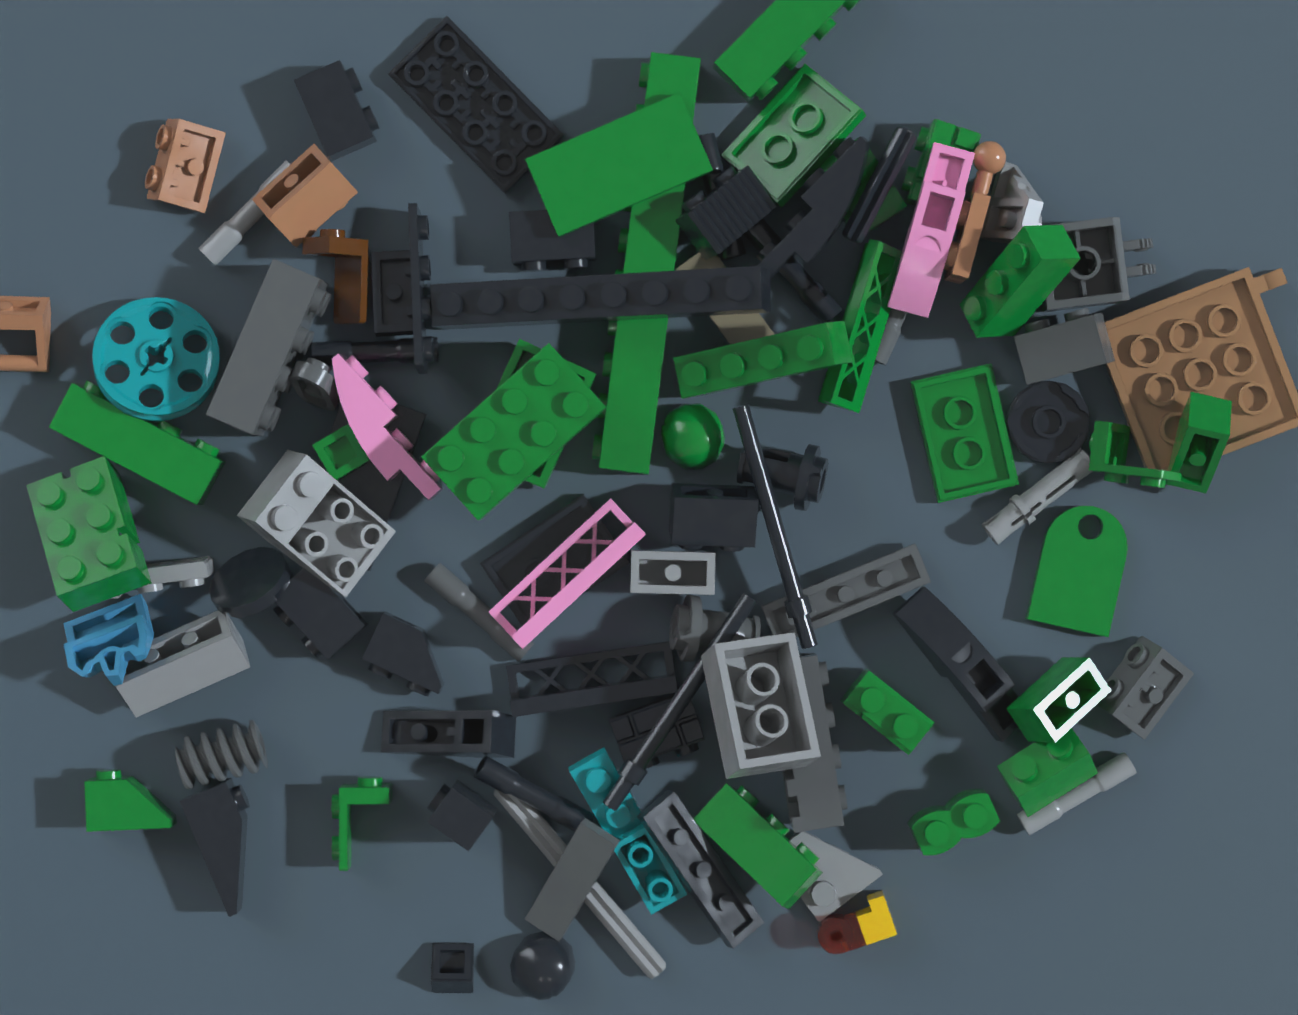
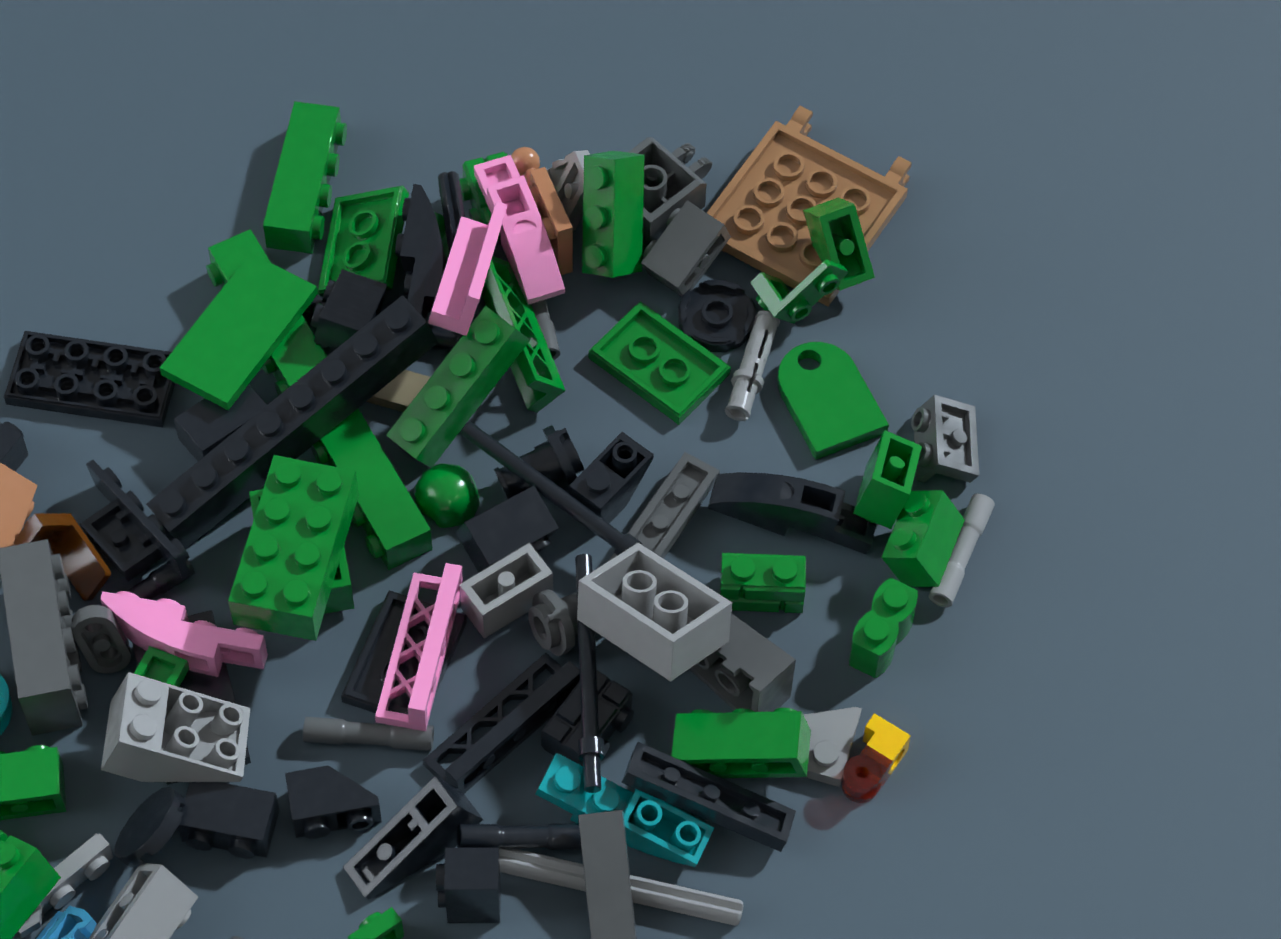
camera: 30 degrees left, 30 degrees down
(833, 528) = (612, 477): none -> black slope
(840, 268) = (466, 272): none -> bright pink fence

